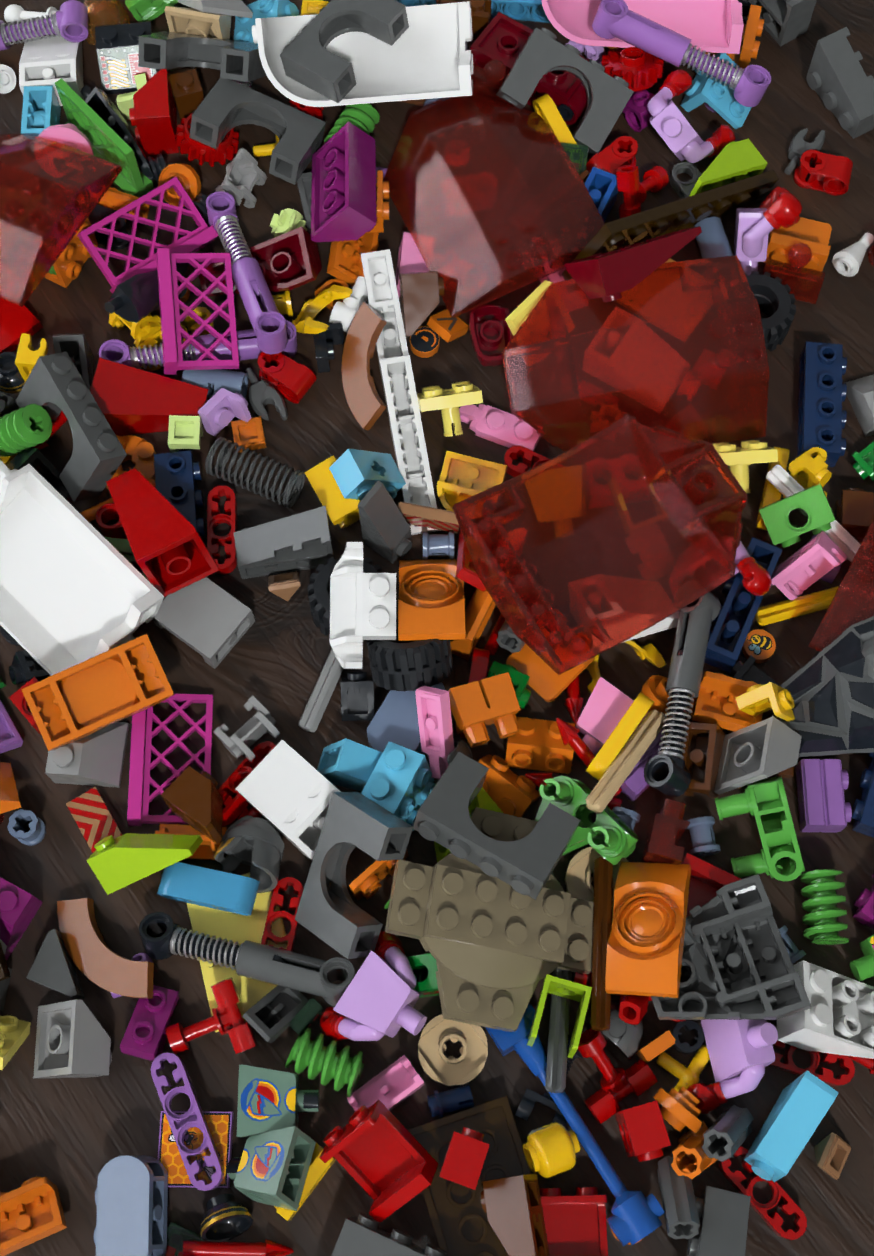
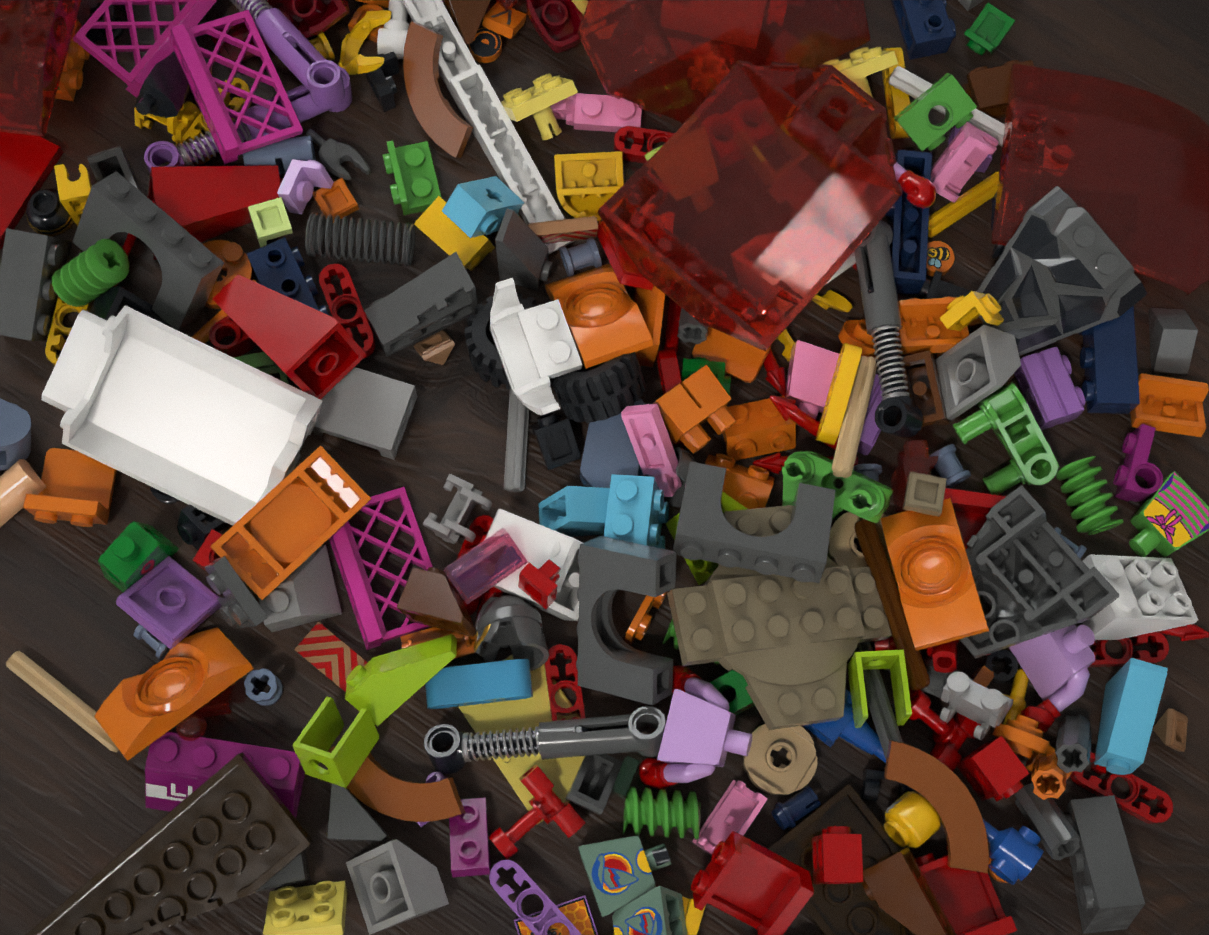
camera: 25 degrees left, 5 degrees up
(30, 750) = (237, 602): none -> dark grey plate
(64, 896) = (348, 754): none -> lime piece
(249, 785) = (485, 565): none -> clear pink slope
(286, 375) = (353, 126): red piece -> none
(290, 815) = (540, 582): none -> red tile
(320, 432) = (414, 176): none -> bright green bracket
(589, 1144) = (950, 799): none -> dark orange tile
(644, 1060) = (974, 702): none -> light grey piece
(663, 851) = (924, 494): none -> dark tan tile
(810, 470) = (930, 63): yellow piece -> none

